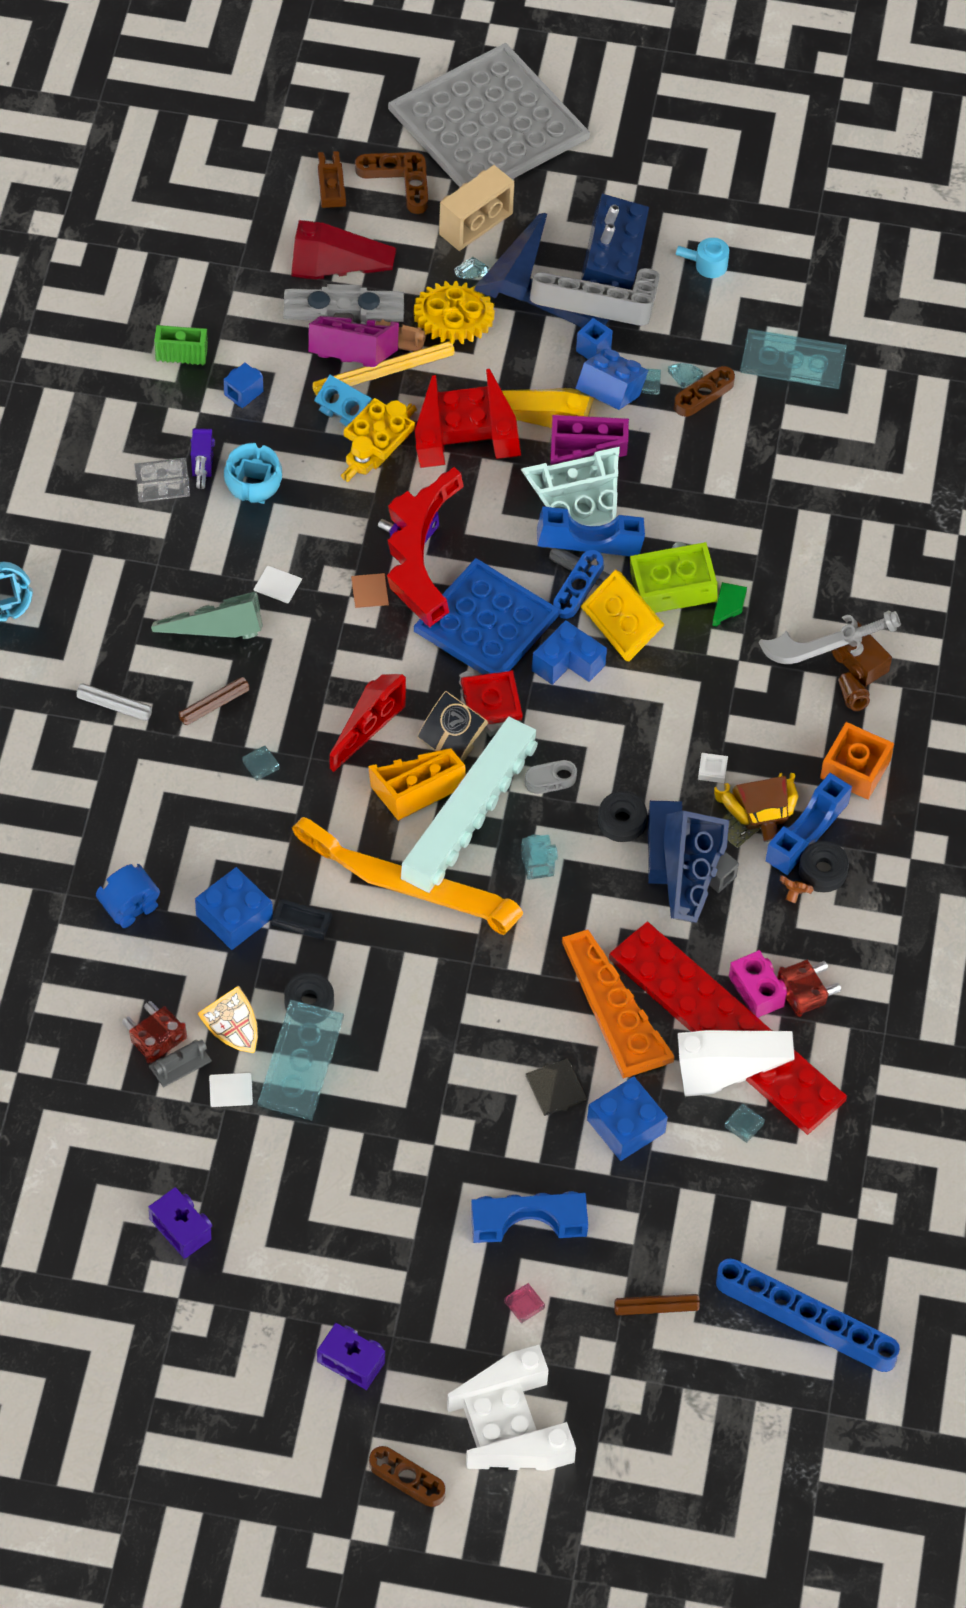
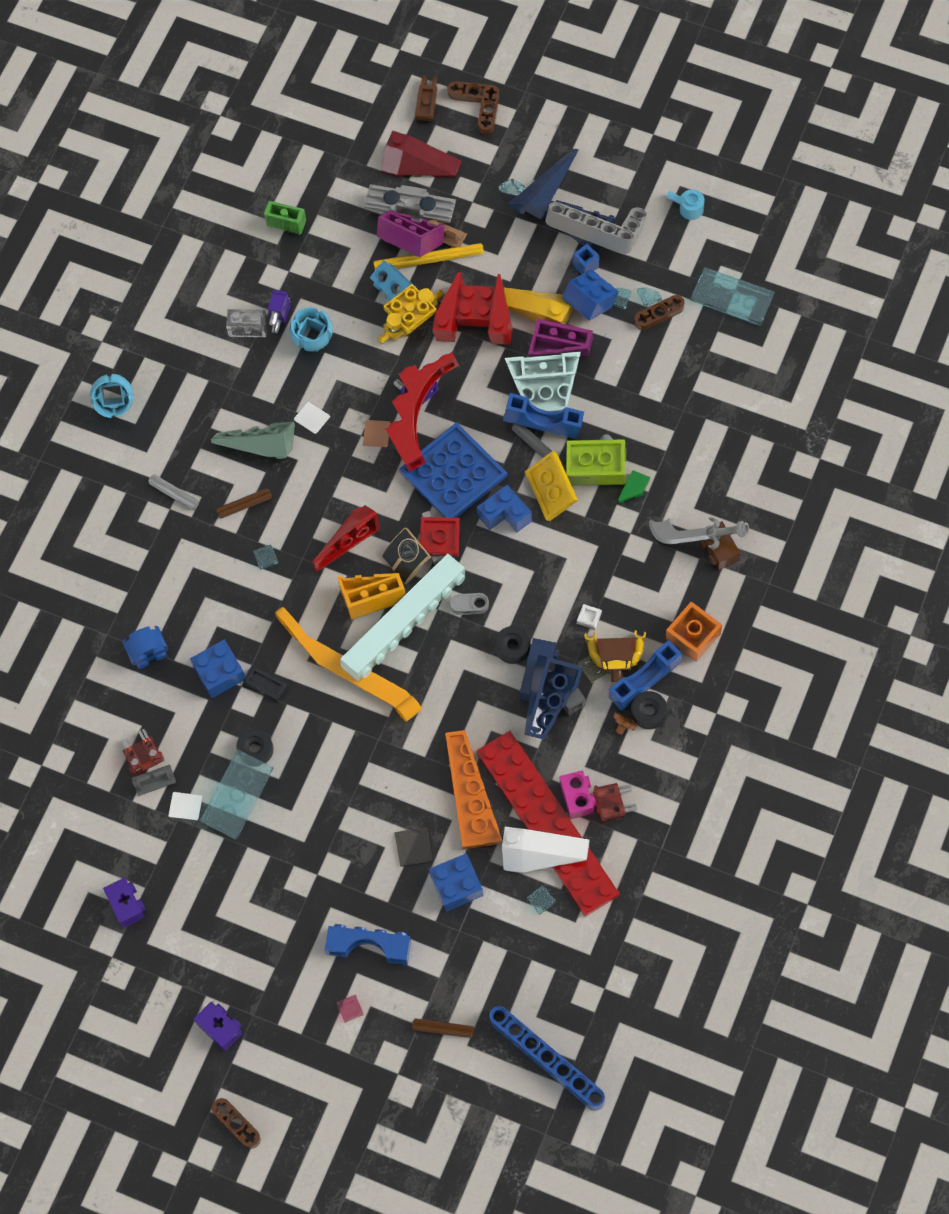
camera: 20 degrees right, 10 degrees up
(232, 1020) = (195, 755): shield -> none
(243, 384) = (323, 255): blue brick -> none
(454, 312) = (489, 221): yellow gear -> none
(476, 207) = (525, 138): tan brick -> none
(489, 116) = (554, 67): light grey plate -> none
(503, 1420) = (312, 1093): white wedge -> none
(538, 856) = (444, 665): clear light blue brick -> none
(594, 572) = (525, 447): blue beam -> none
(615, 241) = (621, 183): dark blue piece -> none
(854, 693) = (707, 575): reddish brown cone -> none

